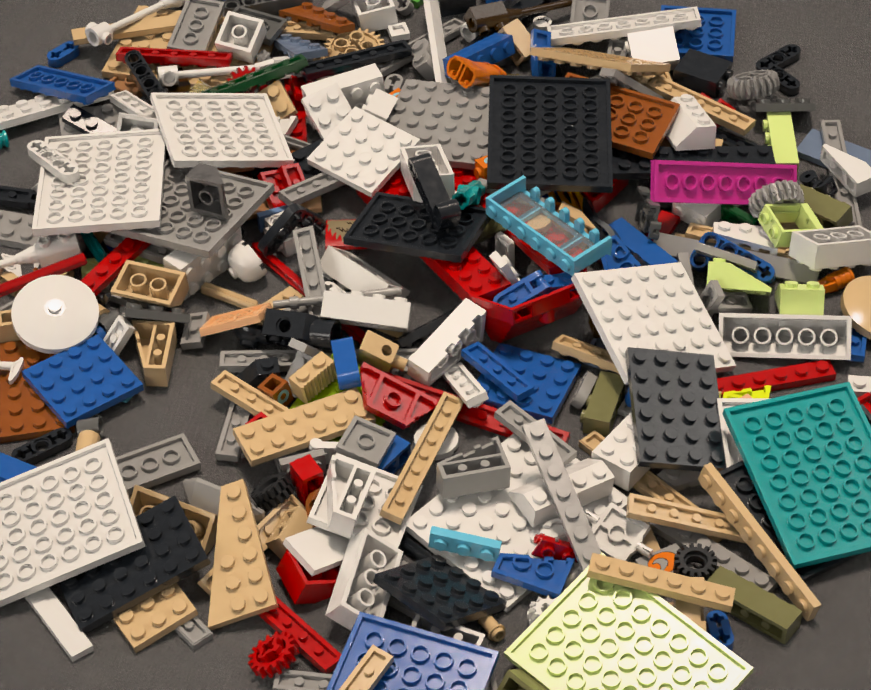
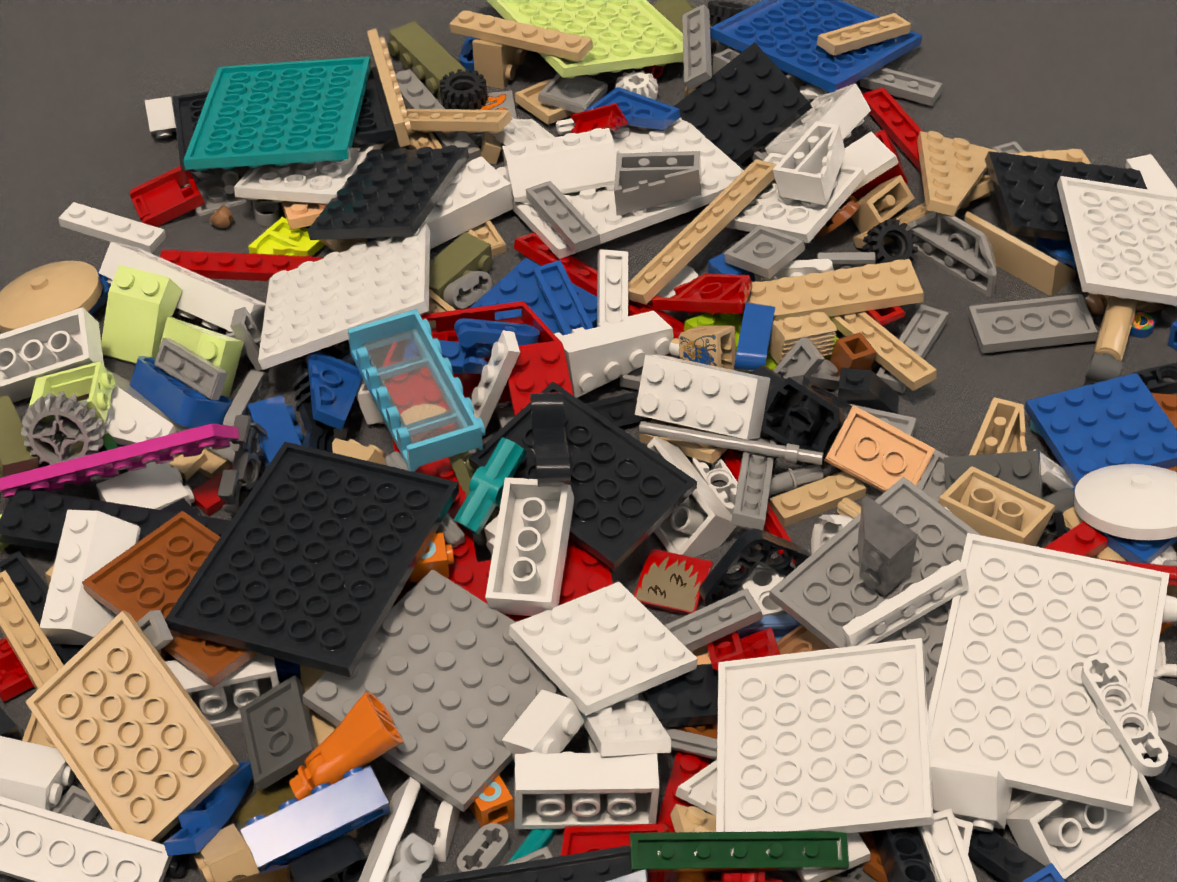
camera: 160 degrees left, 0 degrees up
(176, 180) = (907, 606): none -> white plate
(273, 654) = (933, 105): red gear -> none
(305, 476) = (846, 232): red slope -> none
(464, 544) = (697, 133): medium azure plate -> none
(503, 634) = (696, 46): none -> light grey plate
(561, 491) = (573, 120): light grey plate -> none

